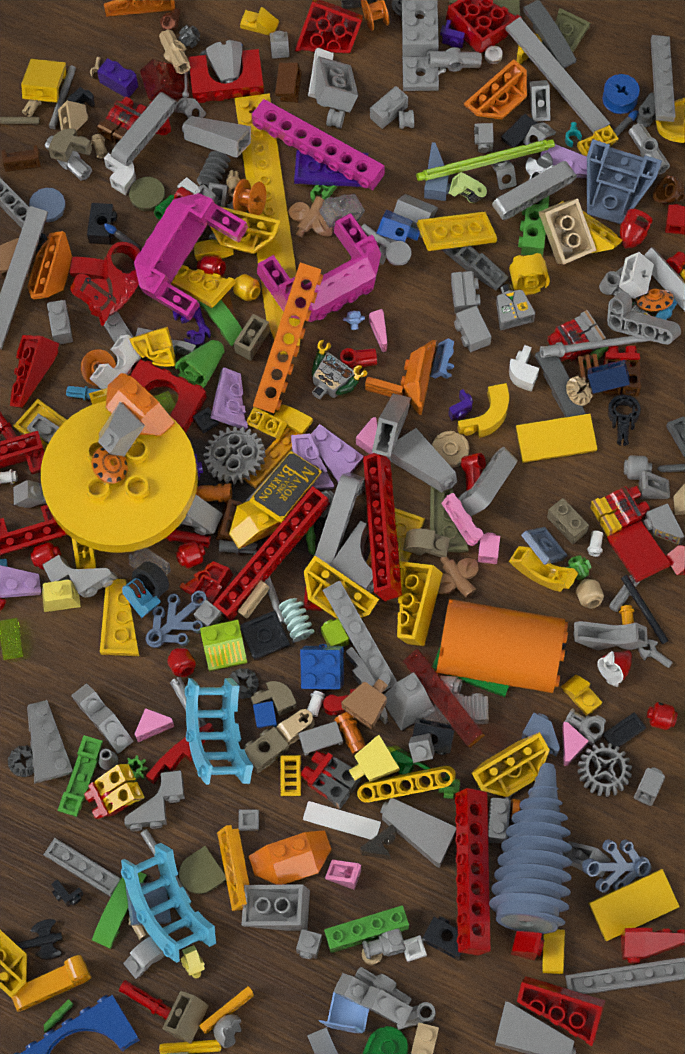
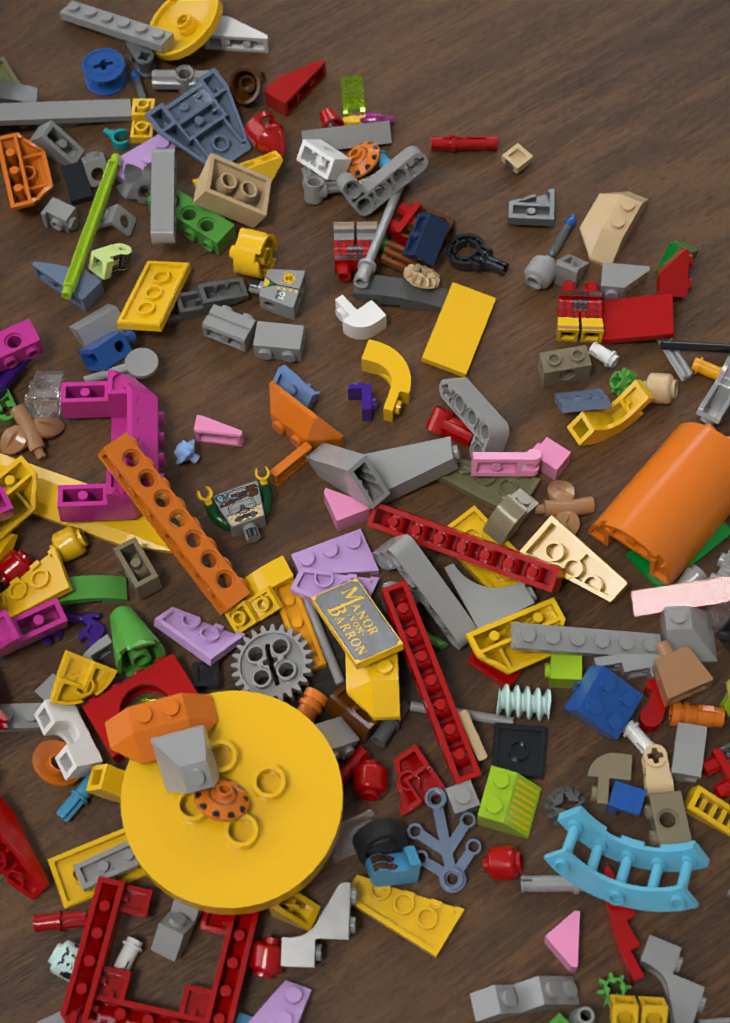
camera: 60 degrees left, 5 degrees down
(60, 596) = (332, 969): light yellow torso -> none
(359, 357) = (238, 469): red piece -> none
(451, 447) = (403, 432): tan tile -> none

